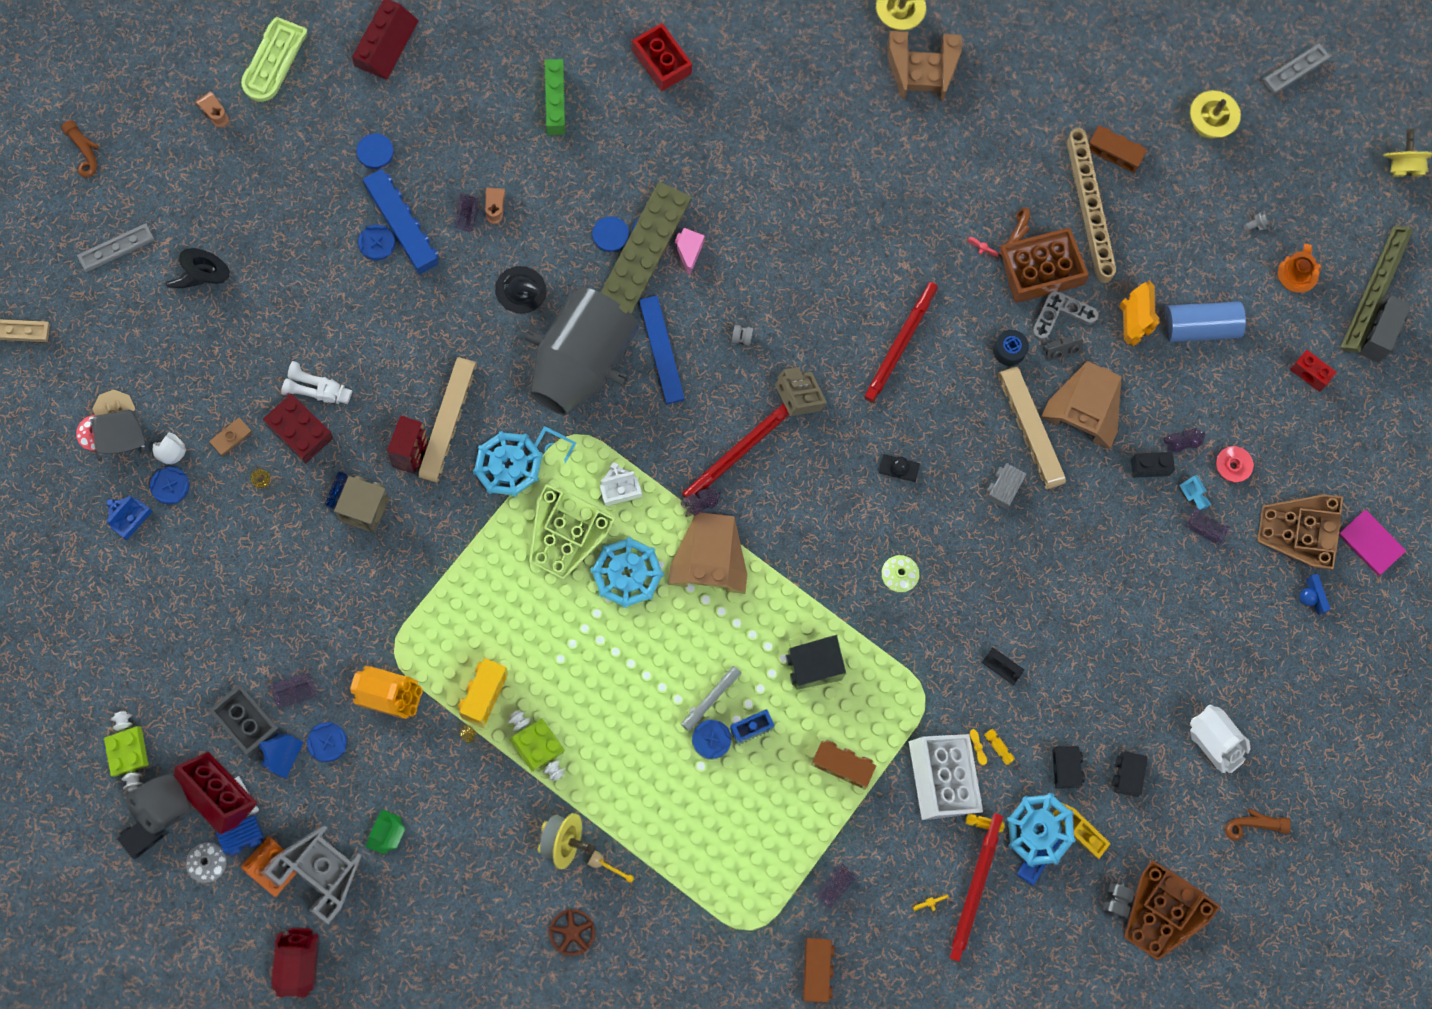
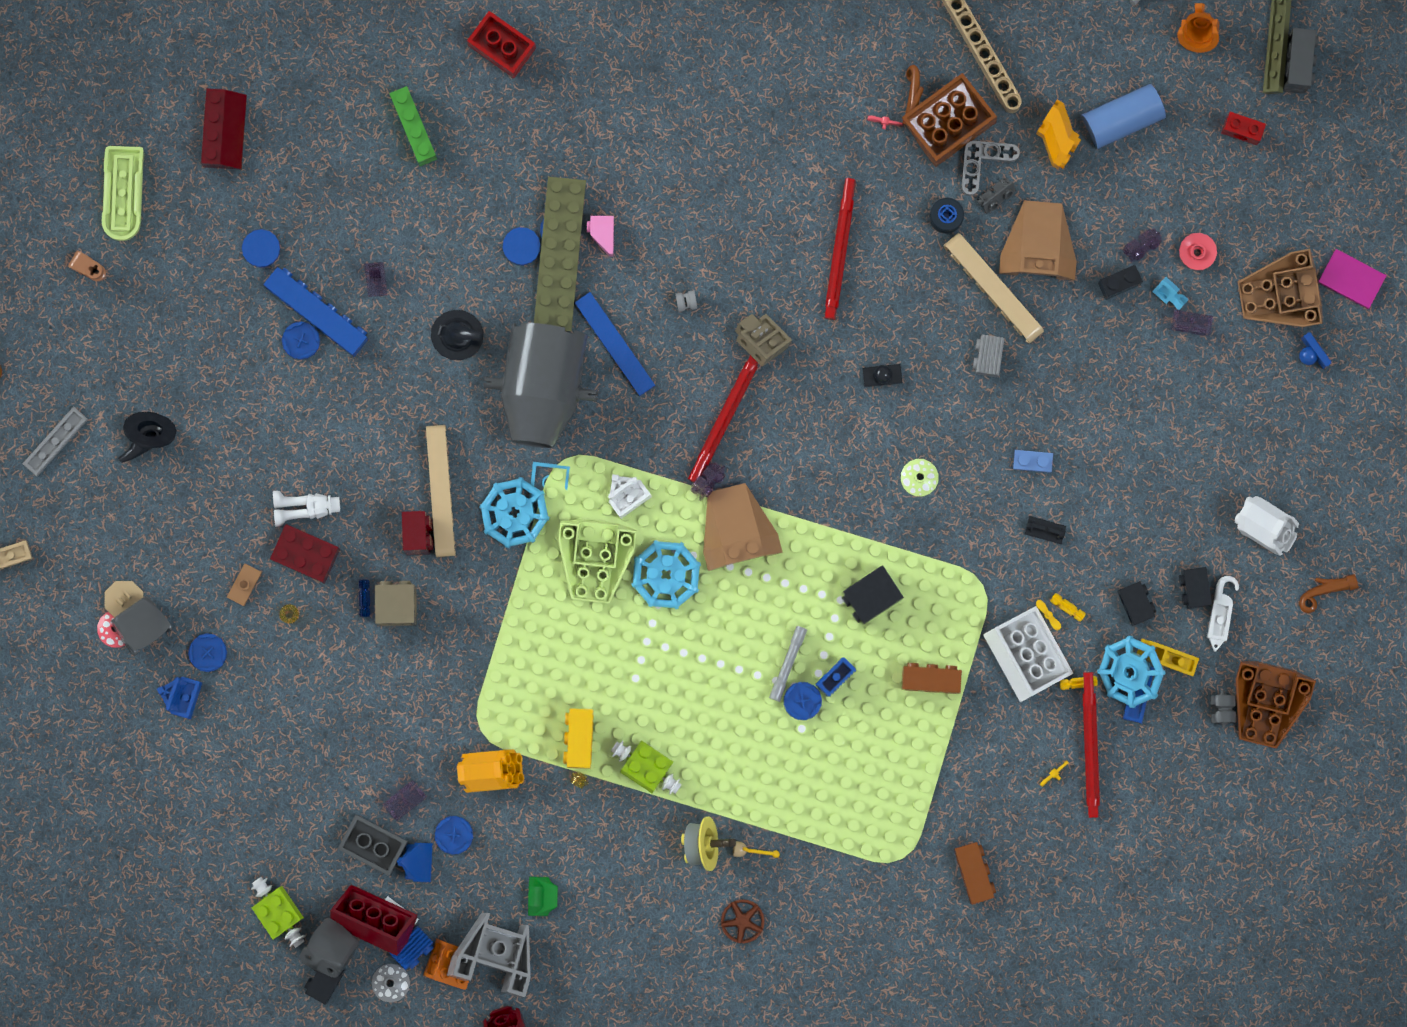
camera: 15 degrees left, 10 degrees up
(169, 450) = (194, 619): white hair -> none
(494, 202) = (398, 256): nougat piece -> none
(835, 886) = (963, 791): clear purple hinge -> none
(1013, 598) = (1032, 461): none -> medium blue plate
(1146, 808) = (1221, 613): none -> white plate

